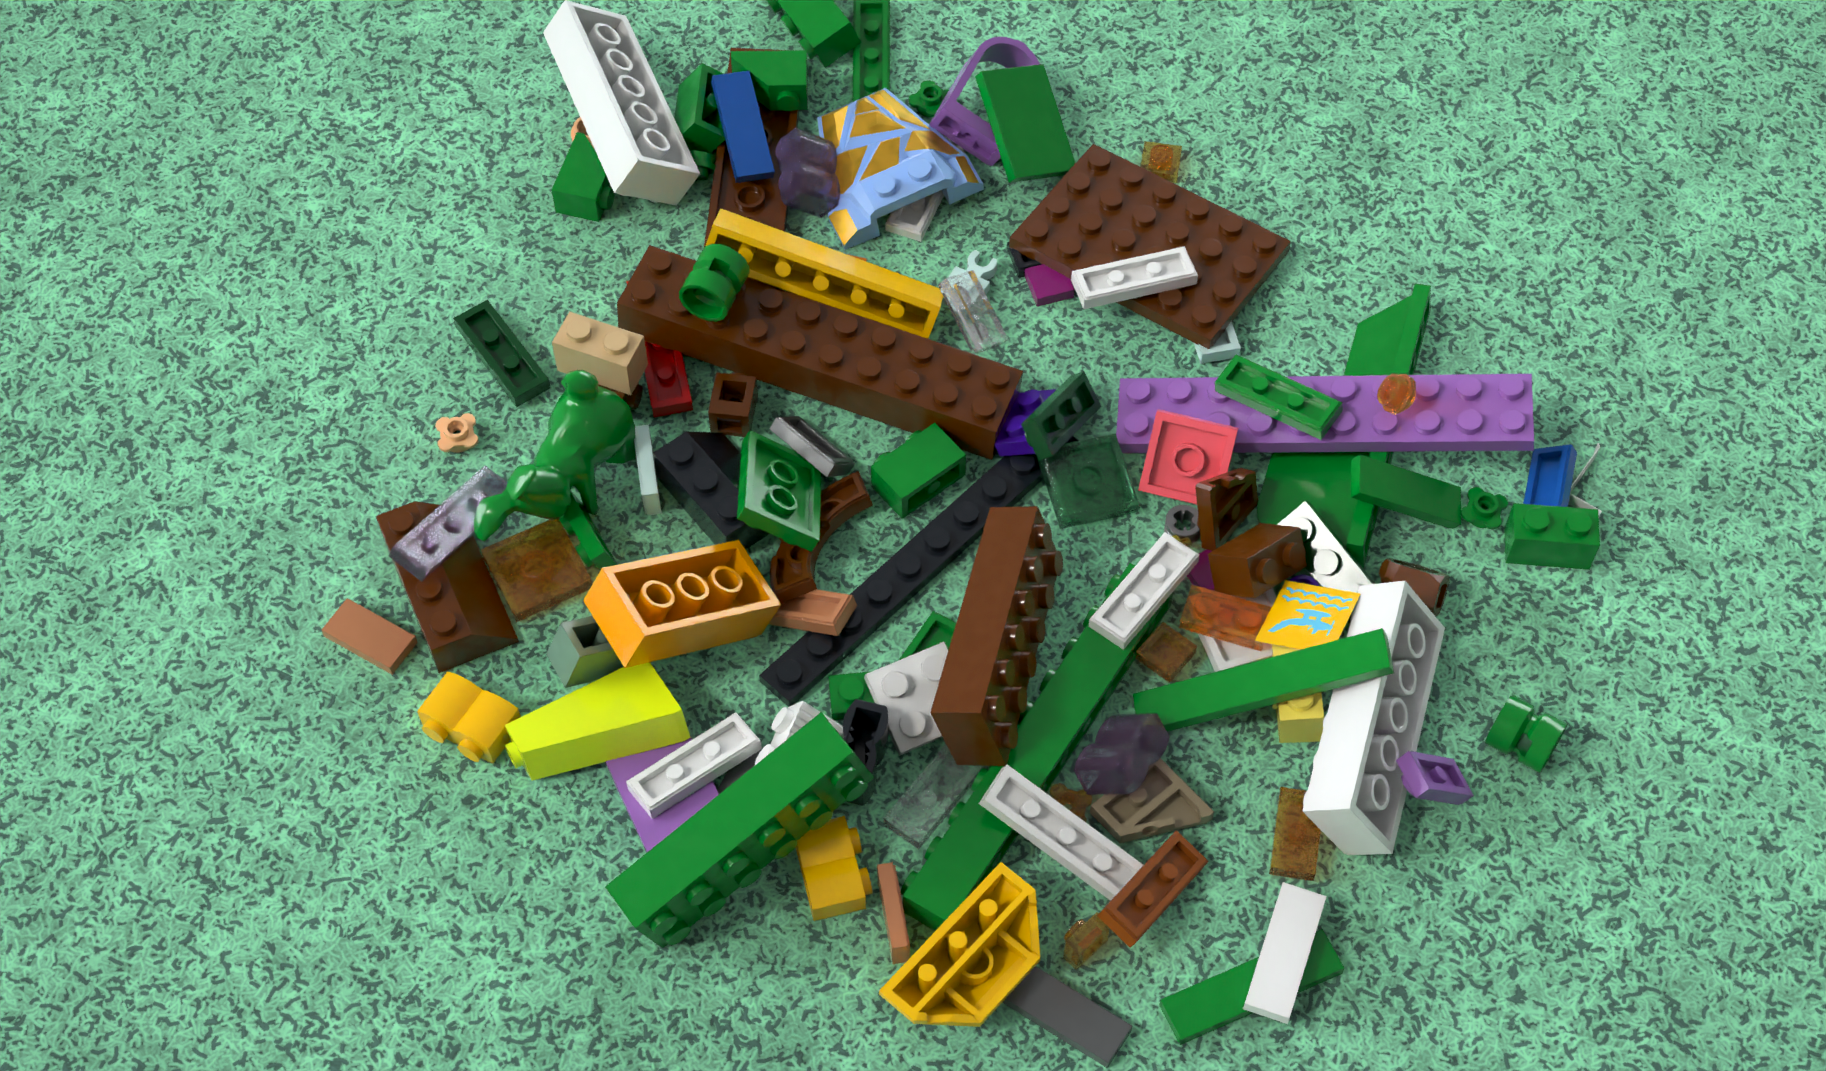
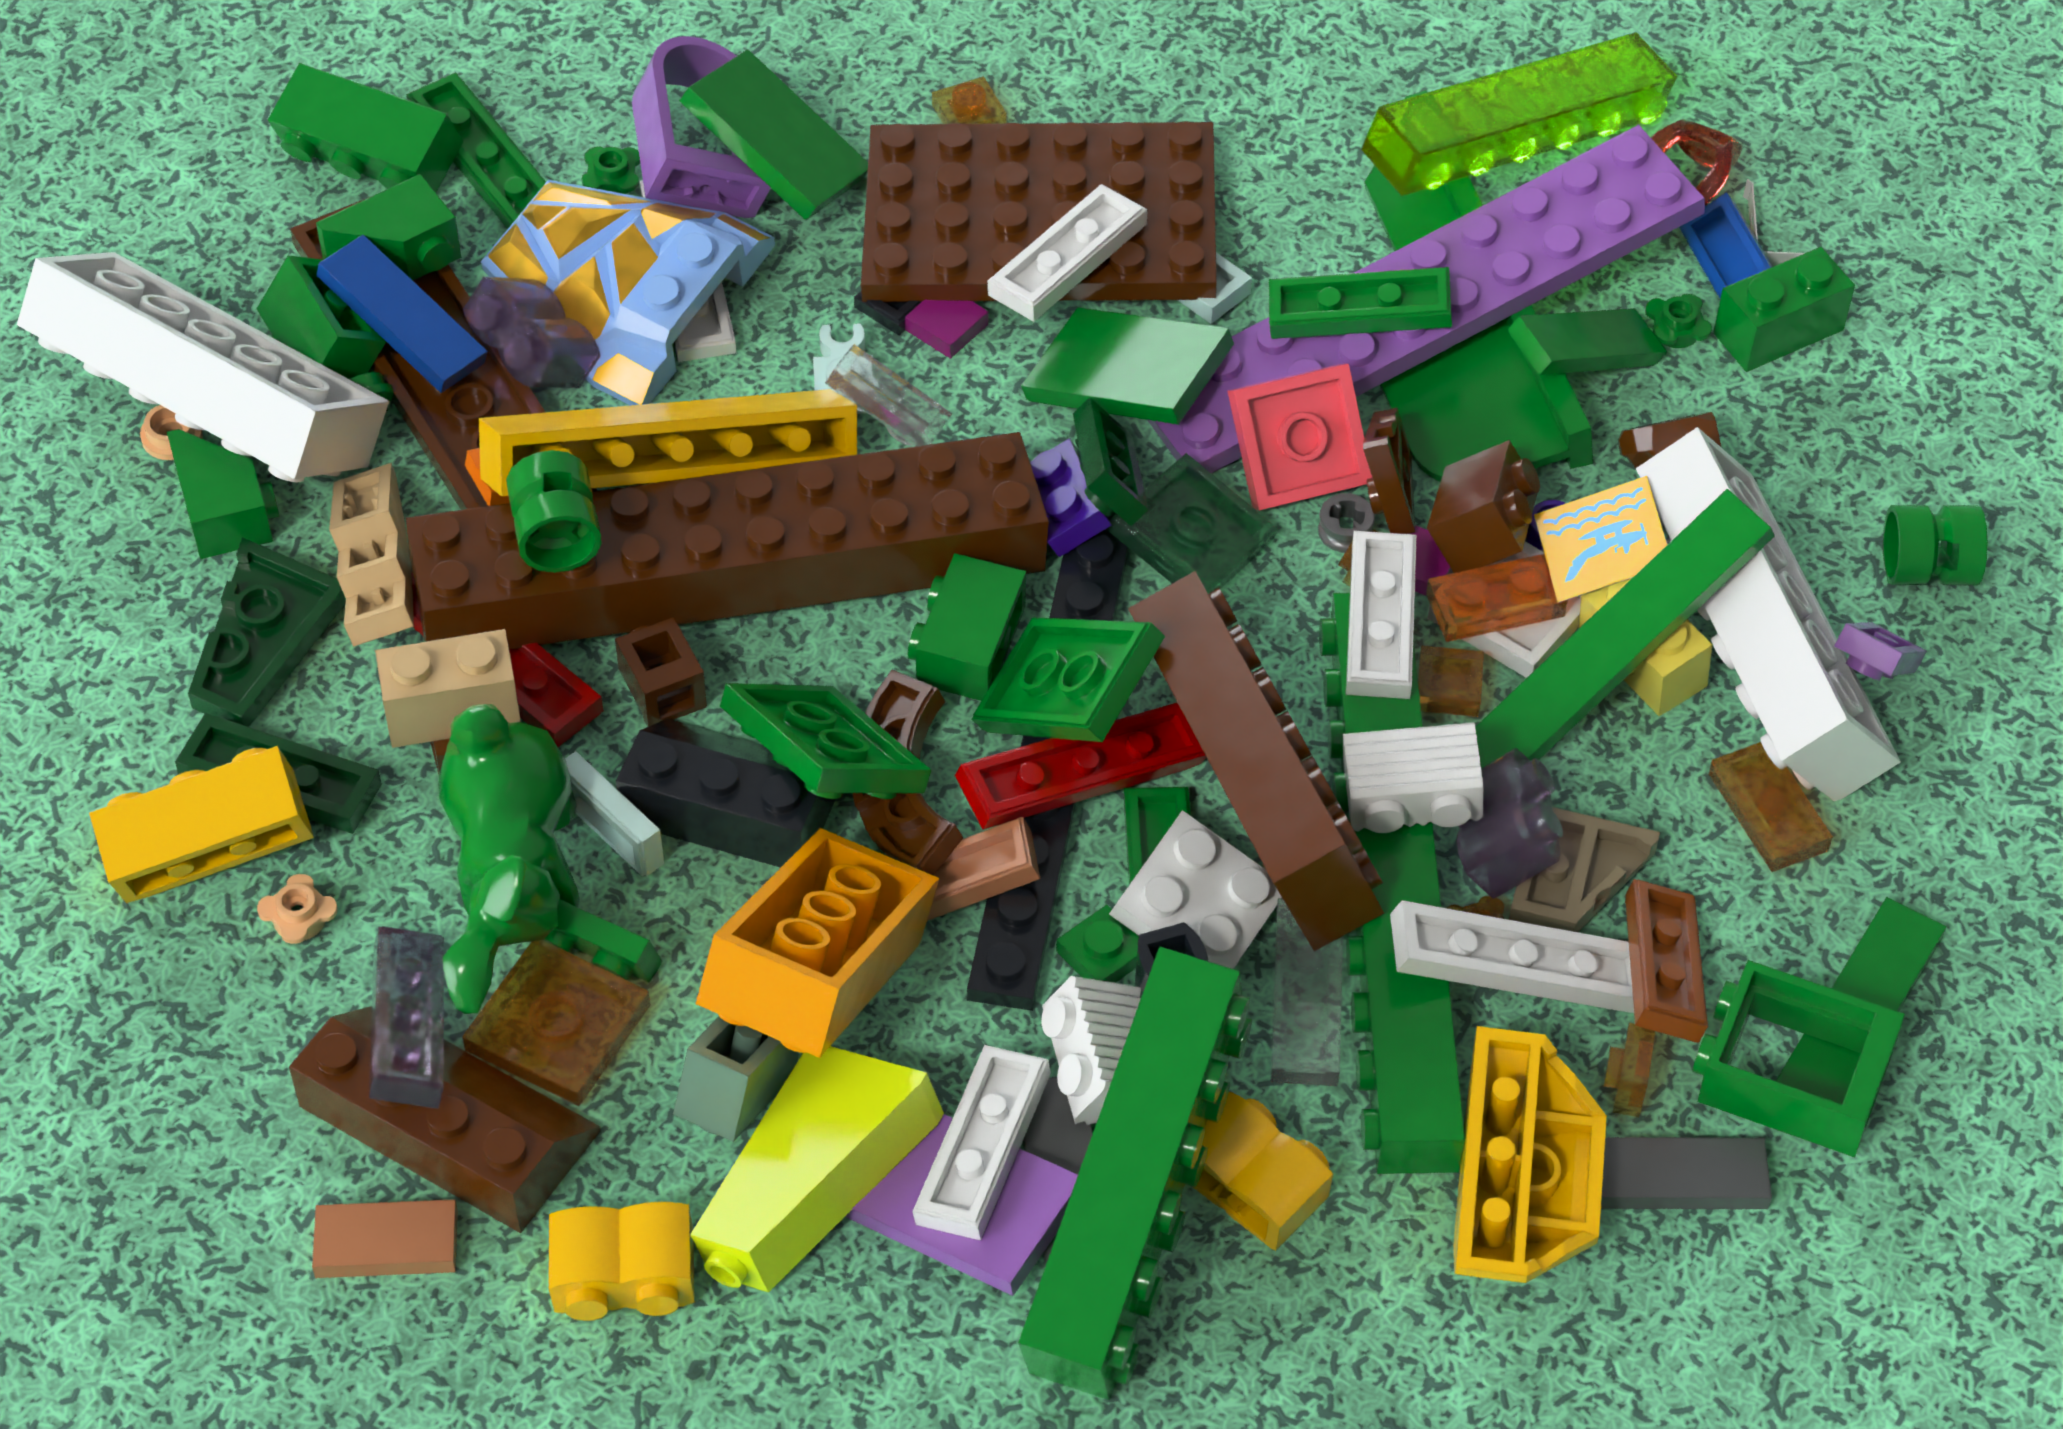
camera: 35 degrees left, 5 degrees down
(436, 359) = (200, 824): none -> yellow brick
(553, 270) = (263, 632): none -> dark green wing
(652, 227) = (372, 554): none -> tan slope
(812, 446) = (807, 669): flat silver tile -> none
(893, 913) = (1377, 1176): nougat tile -> none
(897, 580) = (1070, 771): none -> red tile
(935, 529) = (1068, 678): none -> green tile
(1077, 696) = (1413, 777): none -> white brick
(1124, 363) = (1128, 364): none -> green tile
(1208, 1029) = (1814, 1012): none -> green window
(1284, 953) = (1871, 939): white tile -> none
(1325, 553) = (1563, 466): plate -> none
(1397, 393) = (1509, 221): clear orange plate -> none
(1474, 329) = (1518, 113): none -> clear neon green brick
(1589, 404) = (1707, 148): none -> clear red piece

